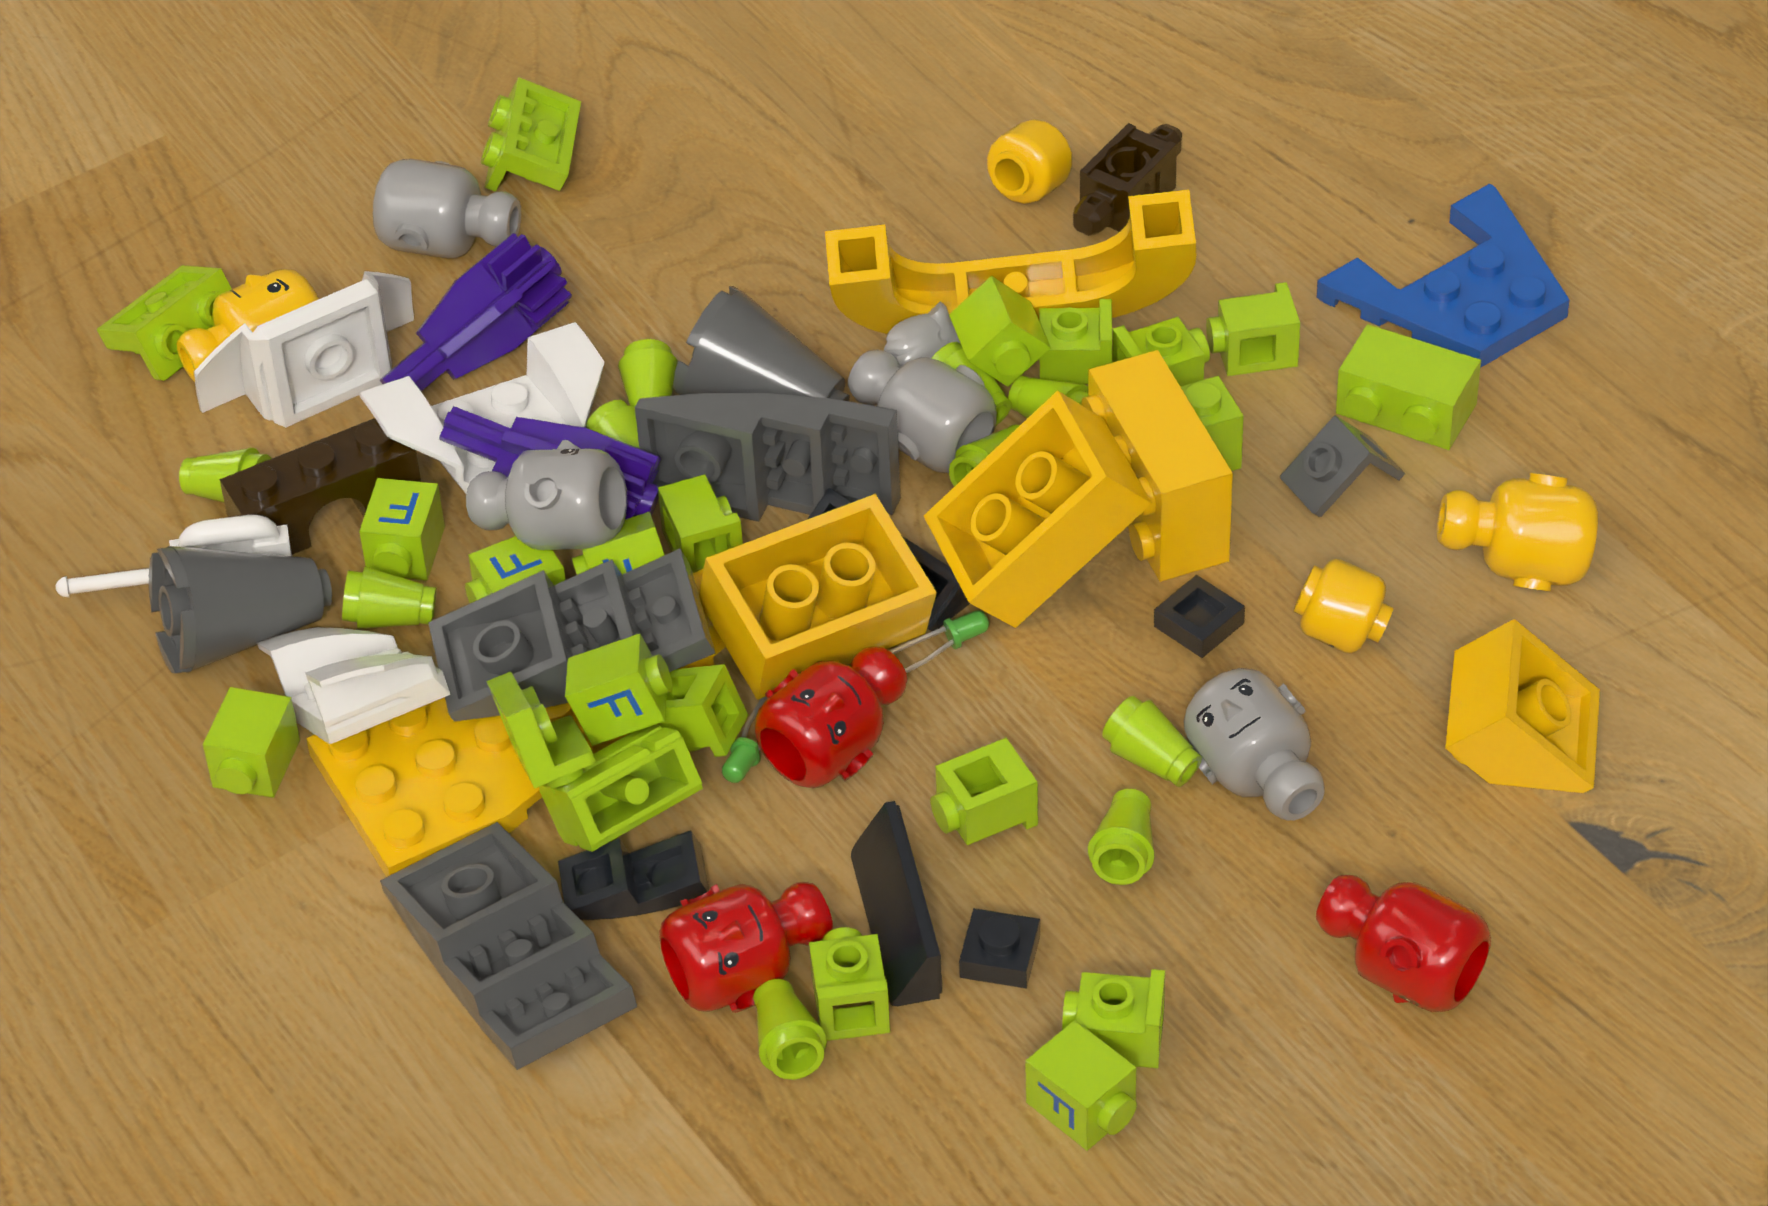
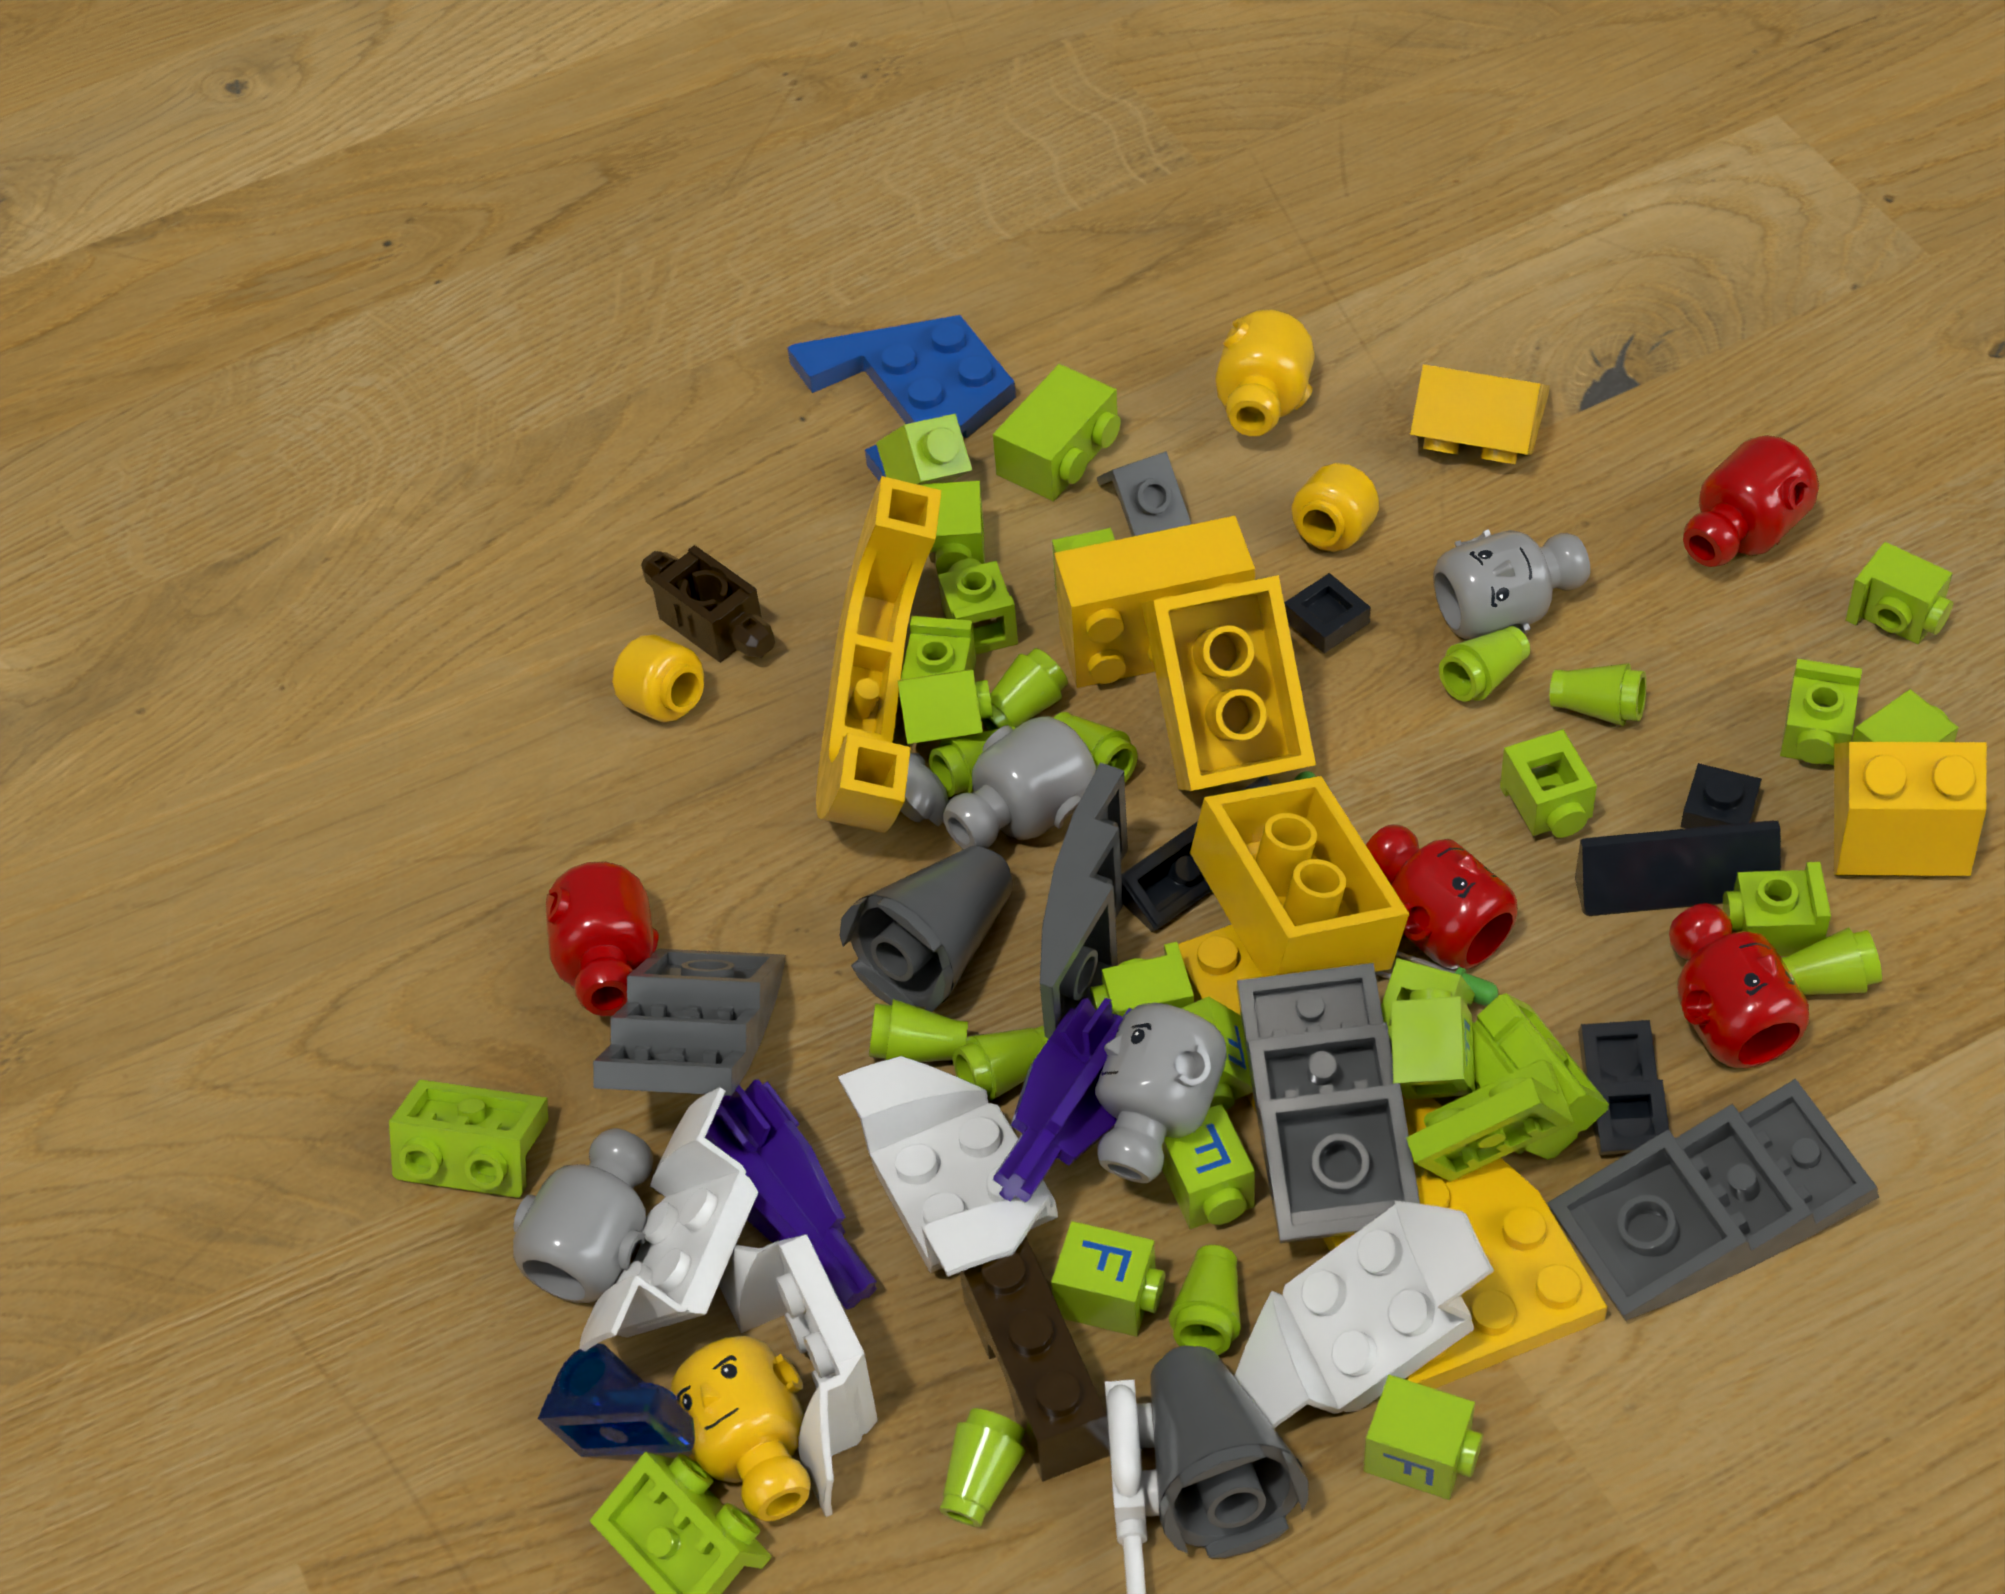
camera: 80 degrees left, 5 degrees up
(265, 244) = (610, 1411): none -> clear blue plate
(421, 260) = (685, 1235): none -> white piece
(628, 231) = (690, 1022): none -> dark grey slope
(730, 171) = (599, 932): none -> red piece
(979, 1057) = (1908, 807): none -> yellow slope
(1306, 1085) = (1901, 594): none -> lime brick
(1331, 283) = (925, 452): none -> lime brick

